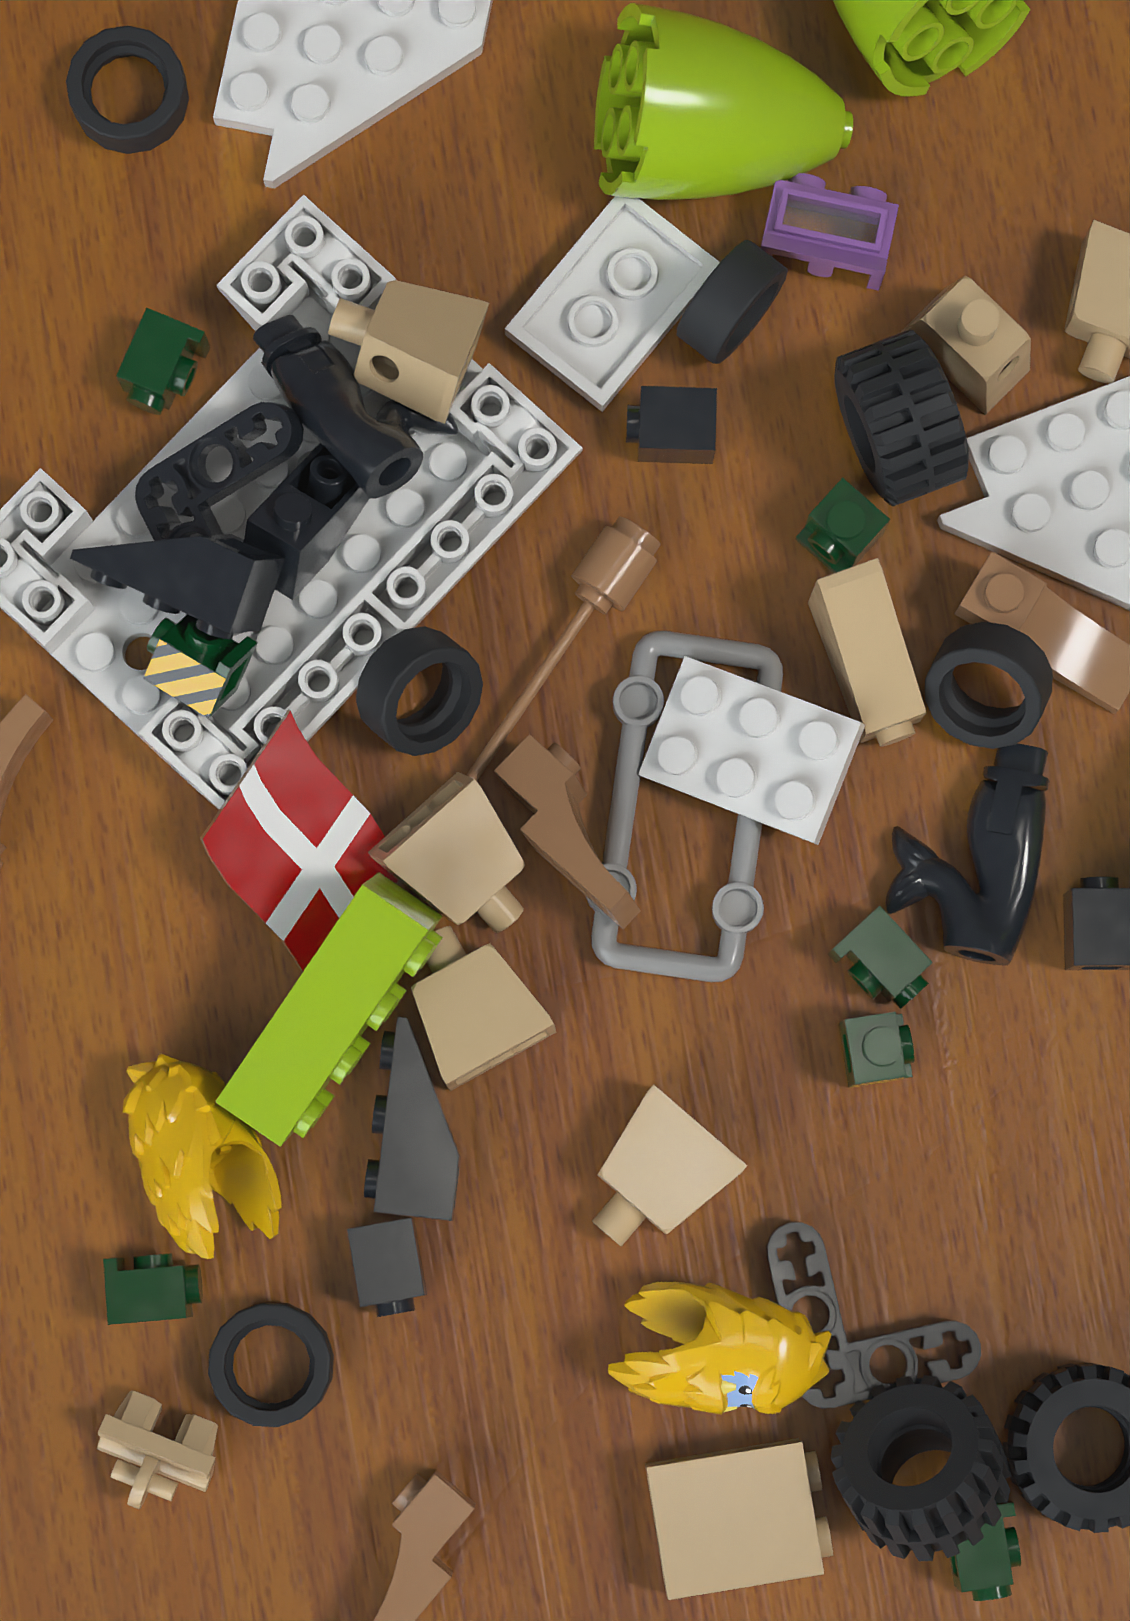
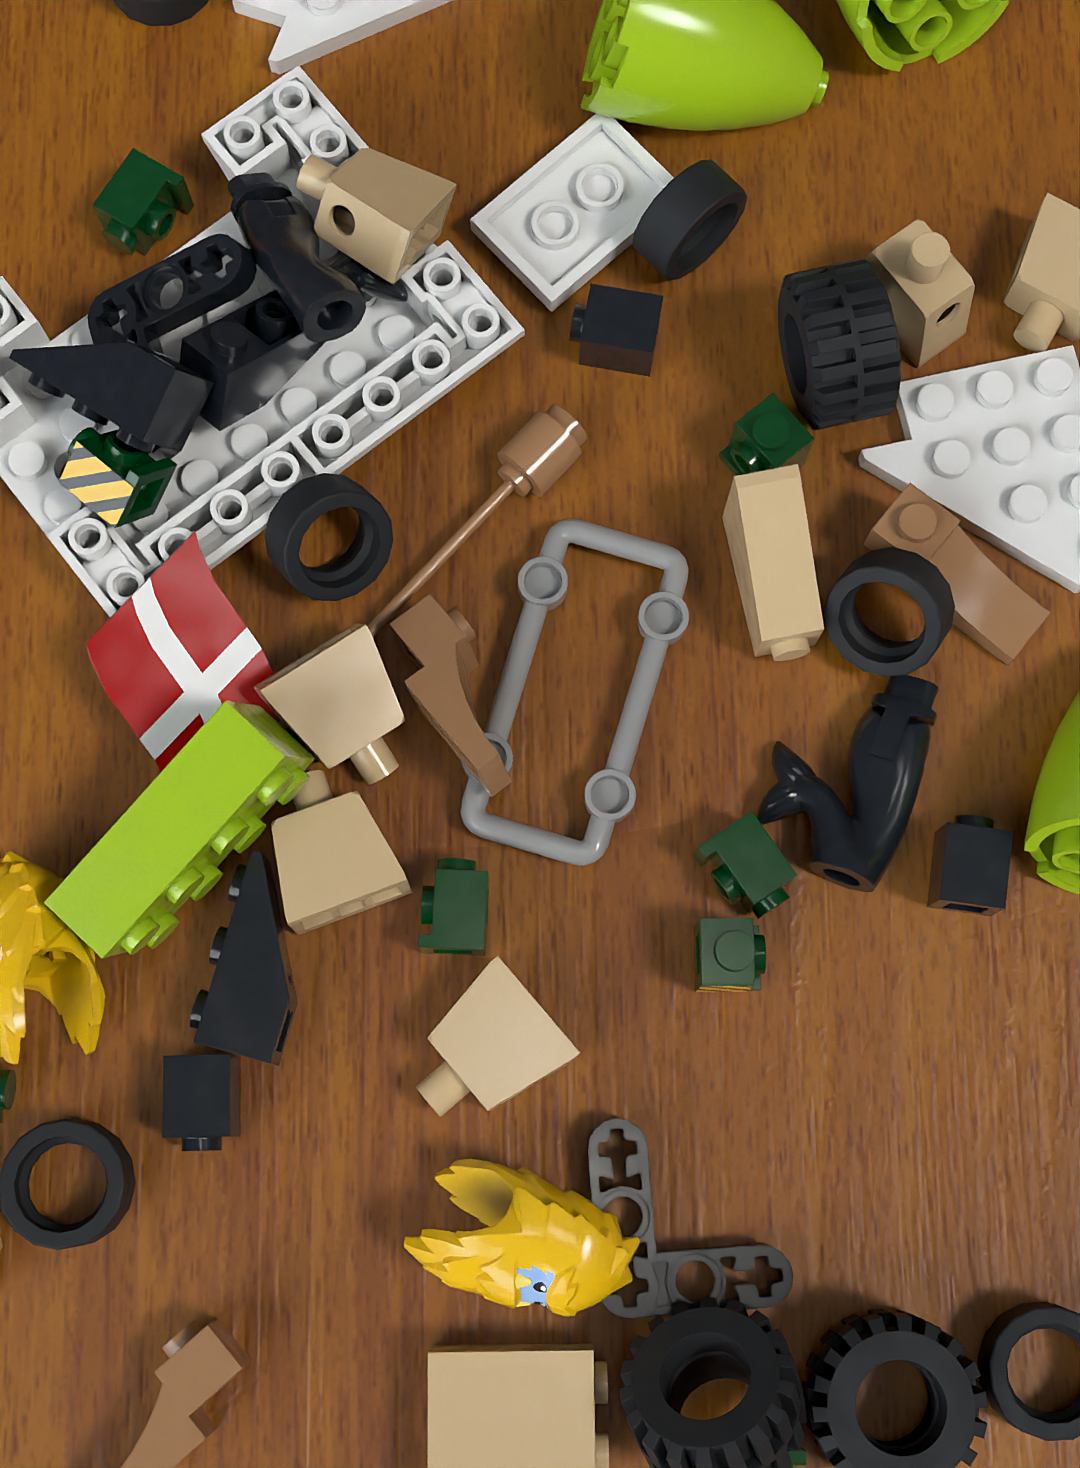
camera: 10 degrees right, 5 degrees down
(604, 1043) = (455, 909): none -> dark green brick
(751, 750) = (647, 641): white plate -> none
(830, 227) = (794, 170): medium lavender window -> none

